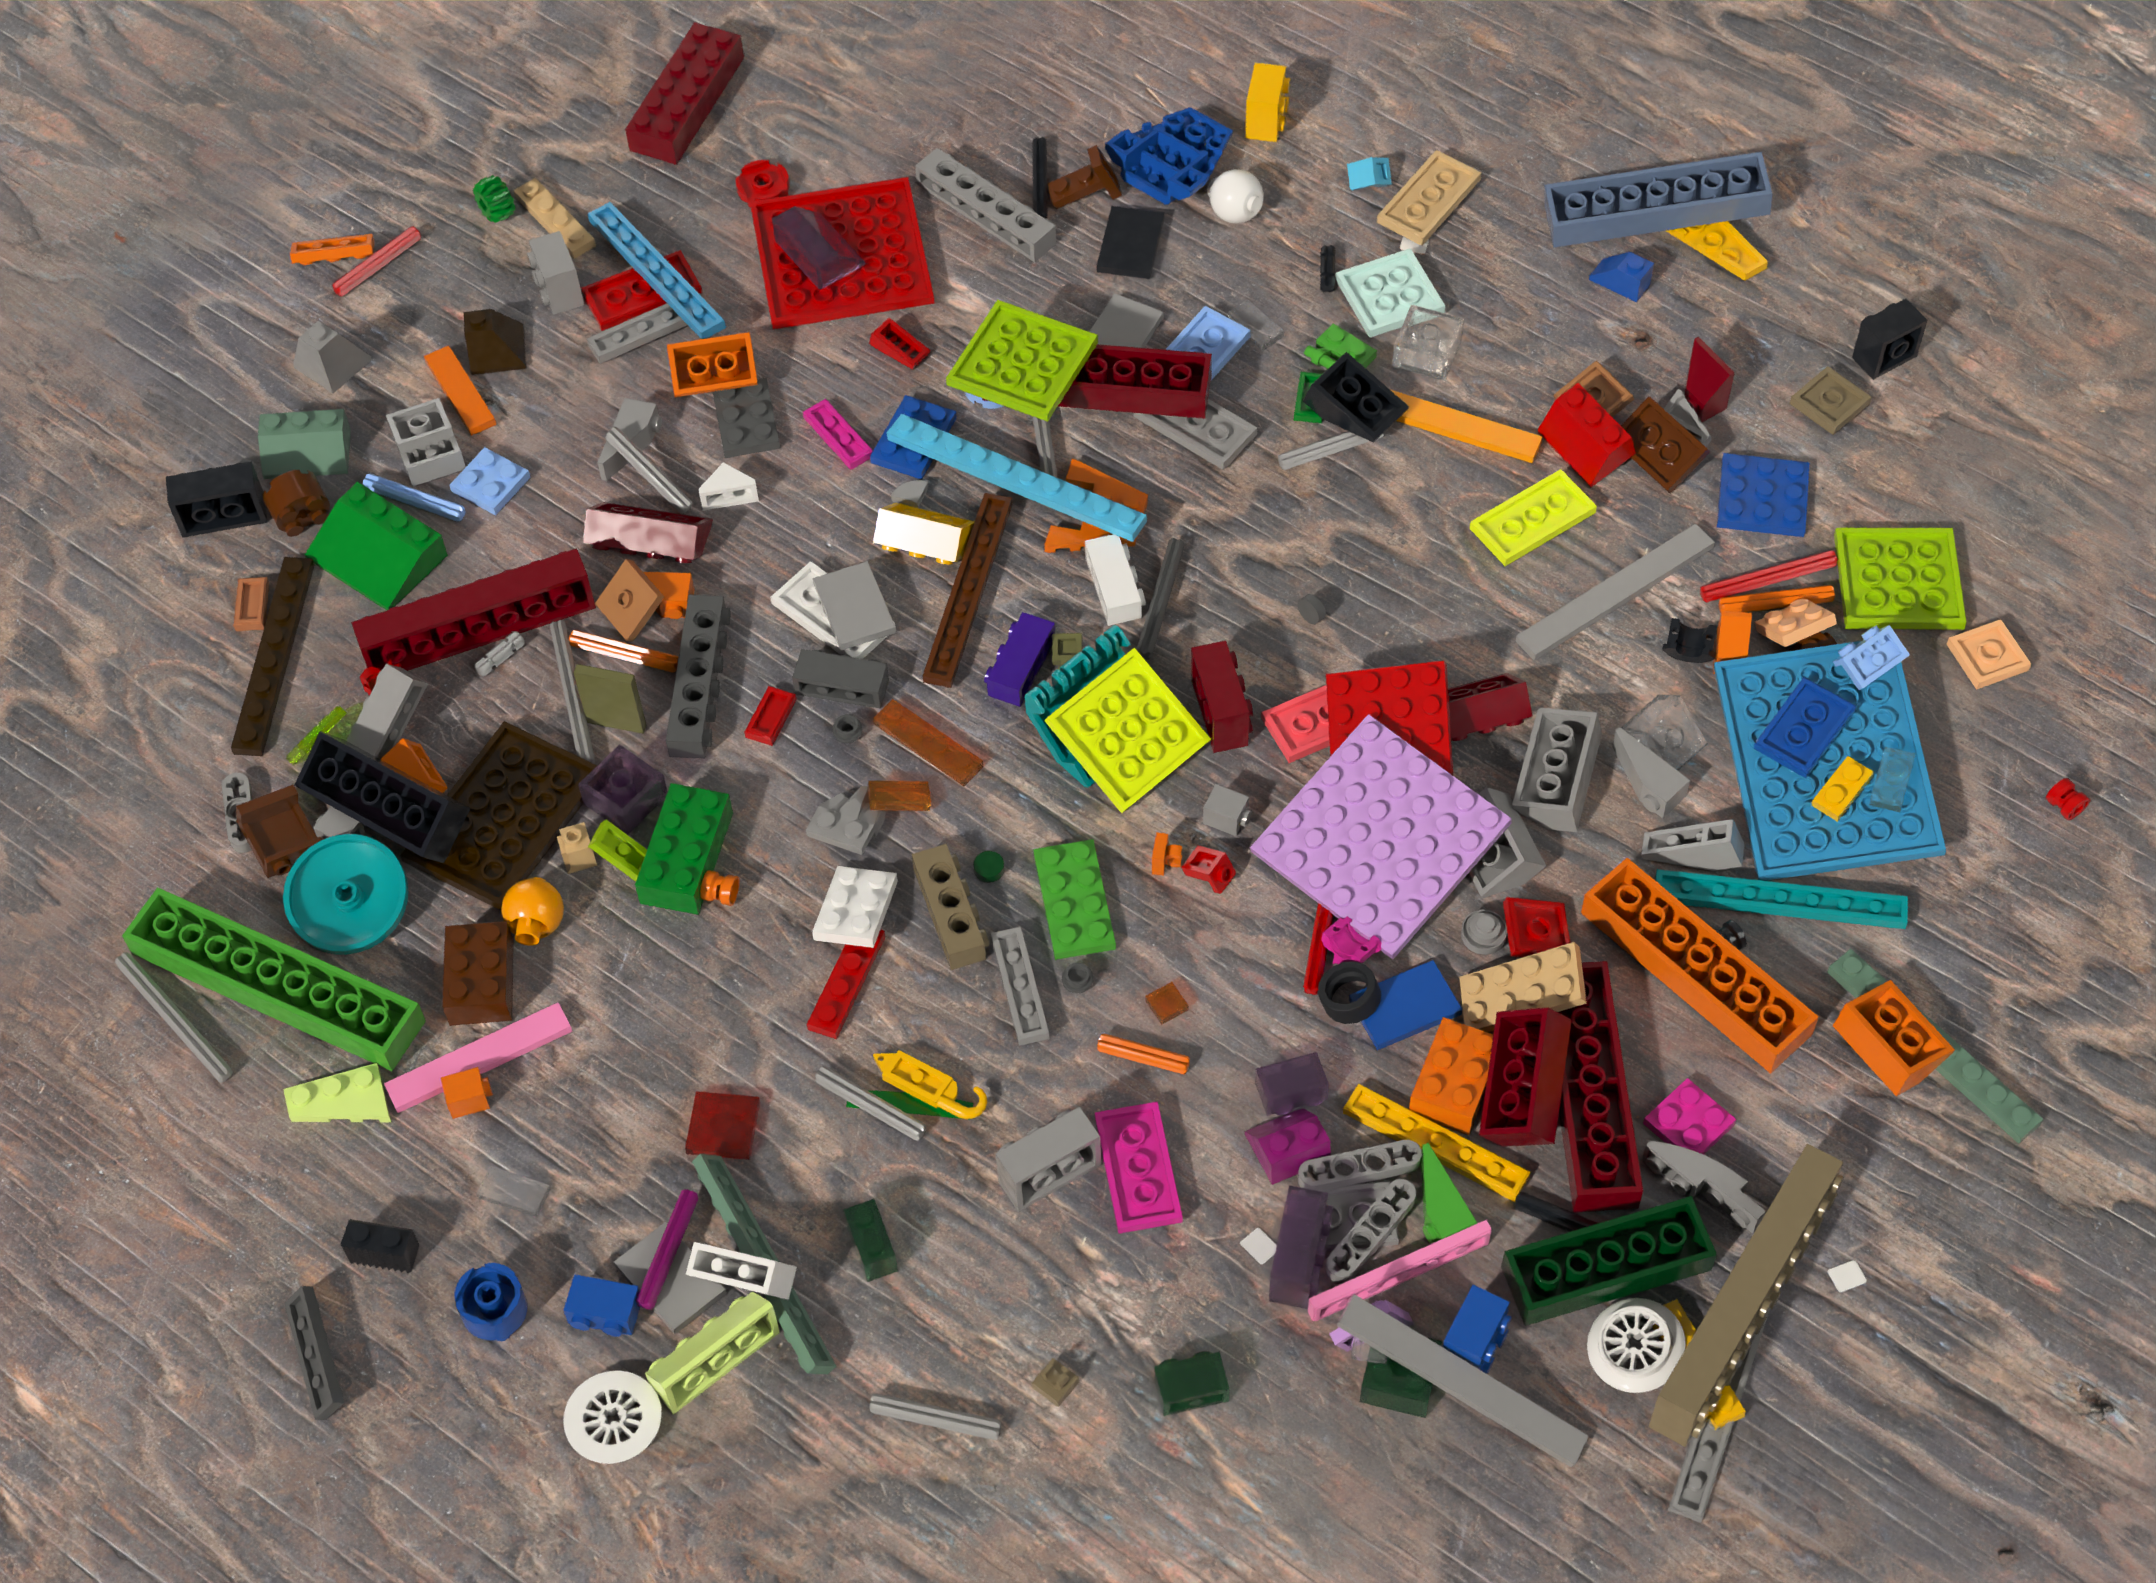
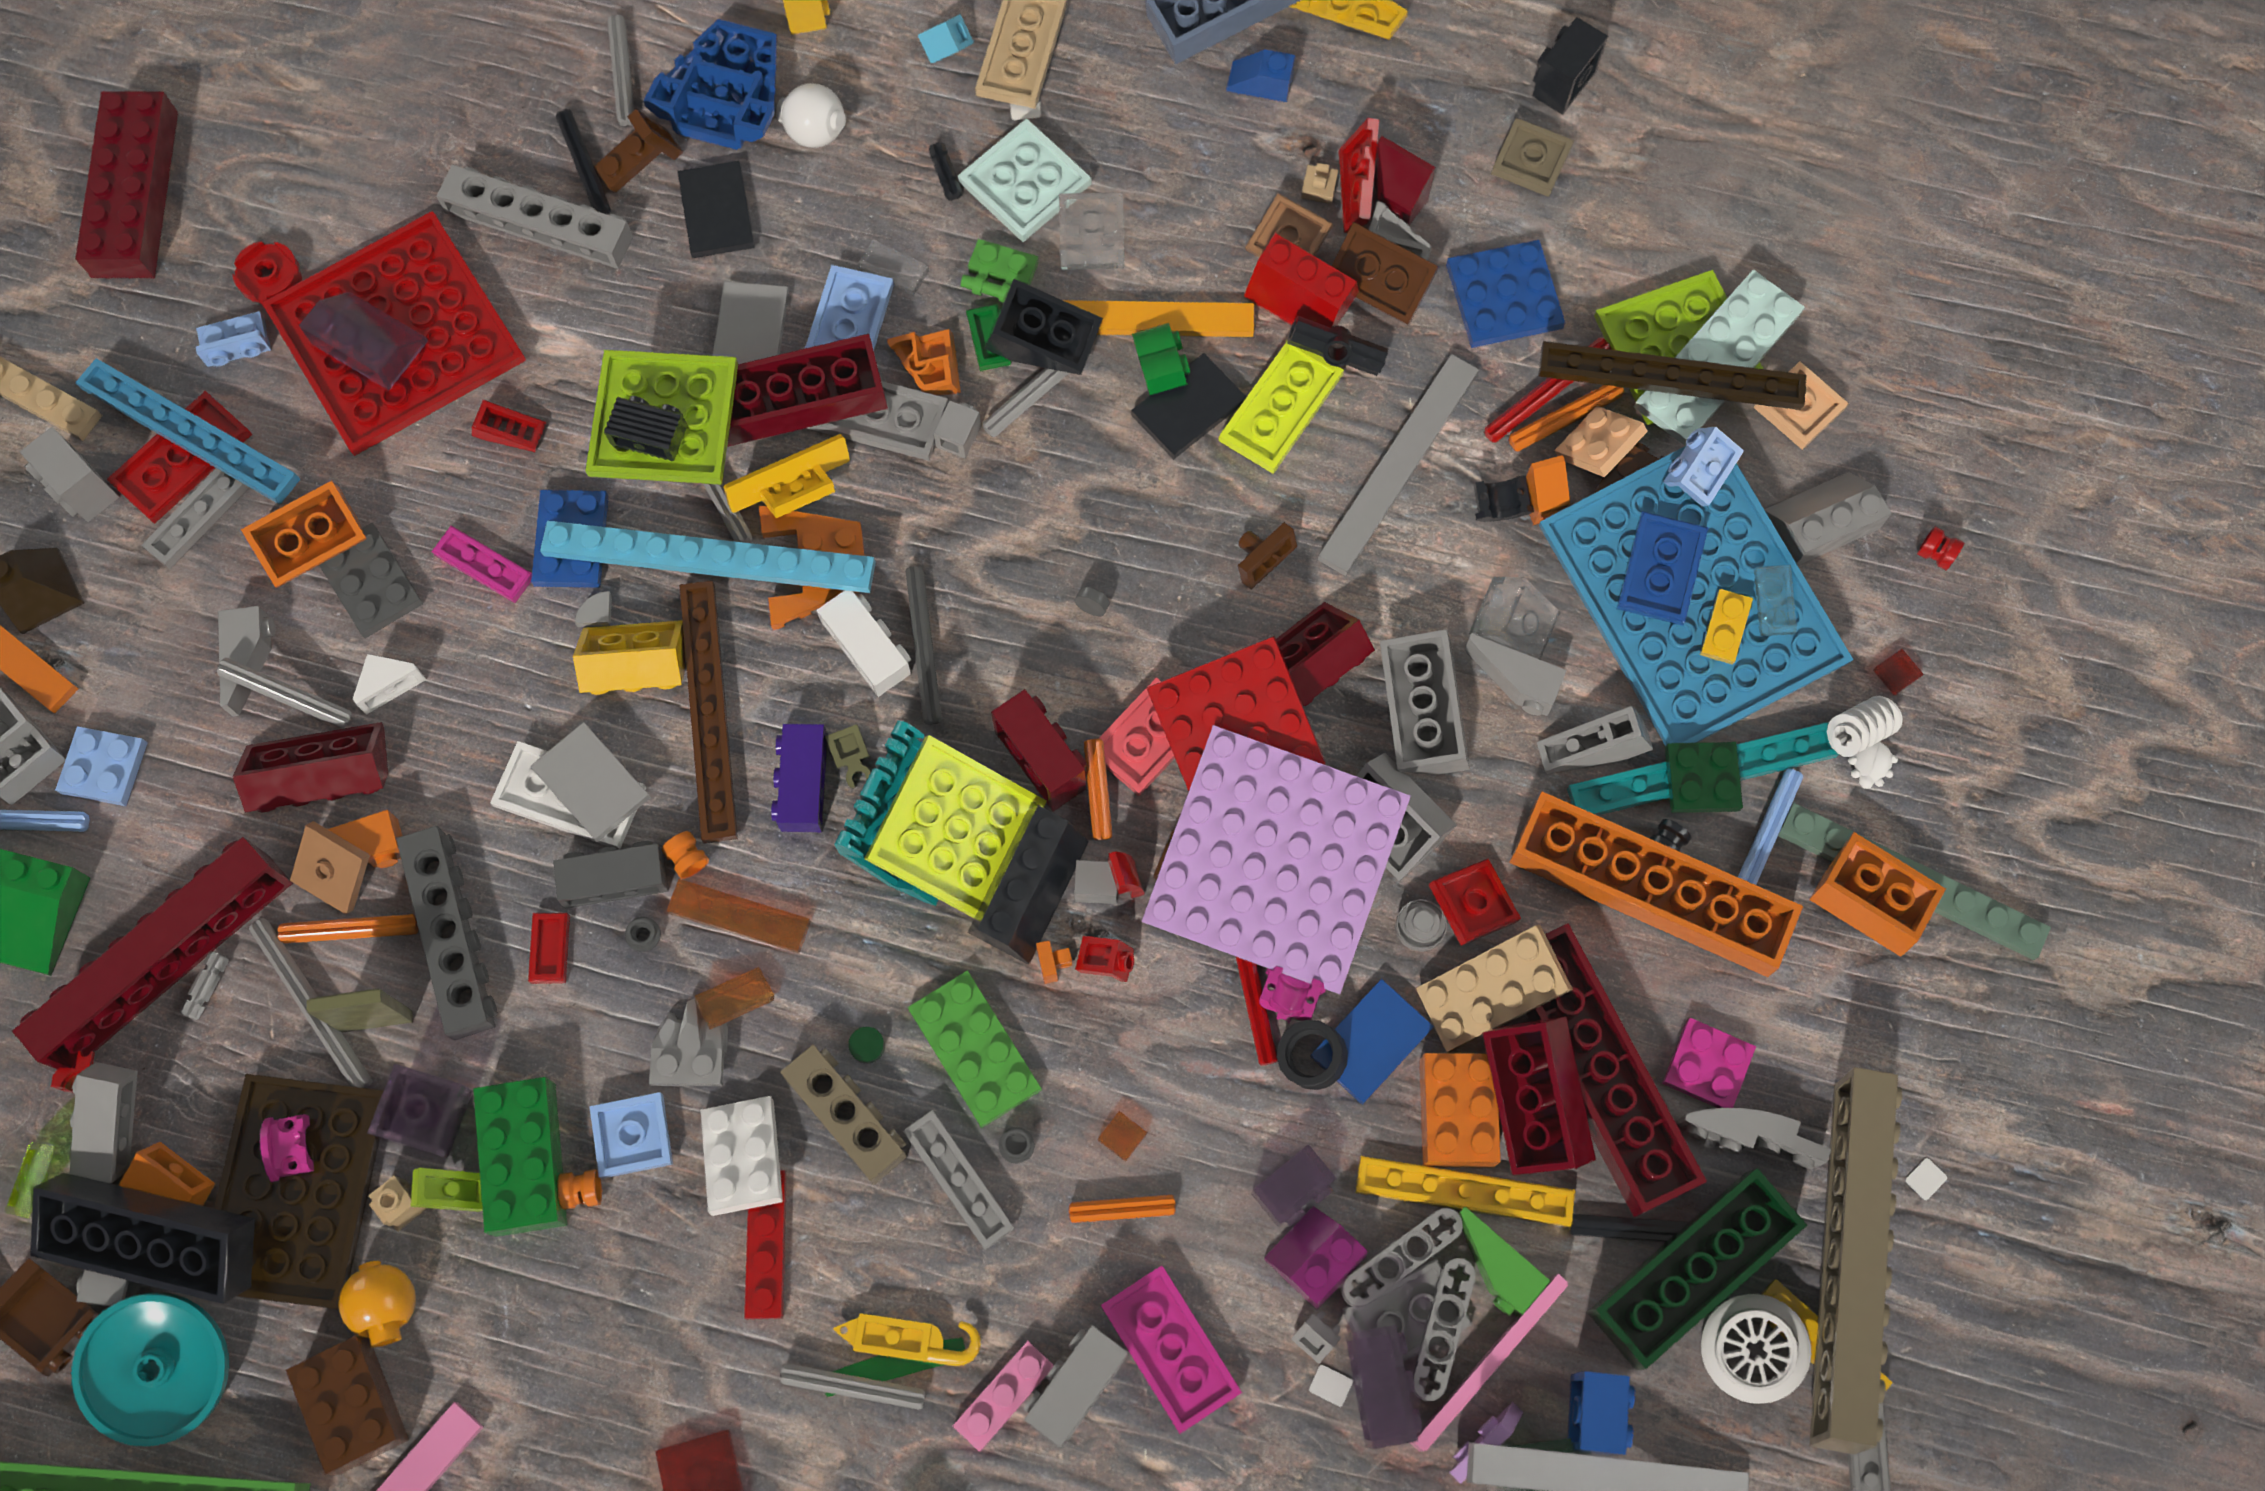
camera: 25 degrees left, 15 degrees up
(511, 777) = (285, 1146): none -> dark pink piece
(716, 222) = (233, 339): none -> light blue bracket
(775, 865) = (631, 1135): none -> light blue plate
(904, 678) = (685, 855): none -> orange wheel
(978, 1157) = (1003, 1396): none -> bright pink plate
(1005, 359) = (646, 427): none -> black brick
(1099, 120) = (621, 68): none -> light grey axle
(1105, 444) = (791, 480): none -> yellow bracket
(1170, 791) = (1029, 884): none -> black slope
(1252, 807) = (1125, 874): none -> red slope
(1255, 398) = (929, 360): none -> orange slope
(1256, 452) = (957, 429): none -> light grey brick
(1256, 743) = (1098, 789): none -> orange axle
(1262, 1200) = (1316, 1337): none -> light grey tile
(1445, 451) = (1160, 358): none -> green brick
(1454, 495) = (1190, 411): none -> black tile
(1471, 620) = (1264, 554): none -> reddish brown tile
(1613, 497) = (1355, 352): none -> black piece
(1638, 367) = (1319, 183): none -> tan tile
(1672, 364) = (1357, 171): none -> red wing
(1776, 899) = (1703, 777): none -> dark green plate
(1820, 963) = (1771, 826): none -> light blue axle
(1876, 587) = (1672, 375): none -> dark brown plate
(1931, 590) = (1734, 335): none -> light aqua plate
(1935, 943) = (1873, 765): none -> white piece
(1936, 906) = (1864, 725): none -> white piece
(1975, 747) = (1828, 516): none -> light grey slope
(1990, 883) = (1898, 672): none -> clear red tile

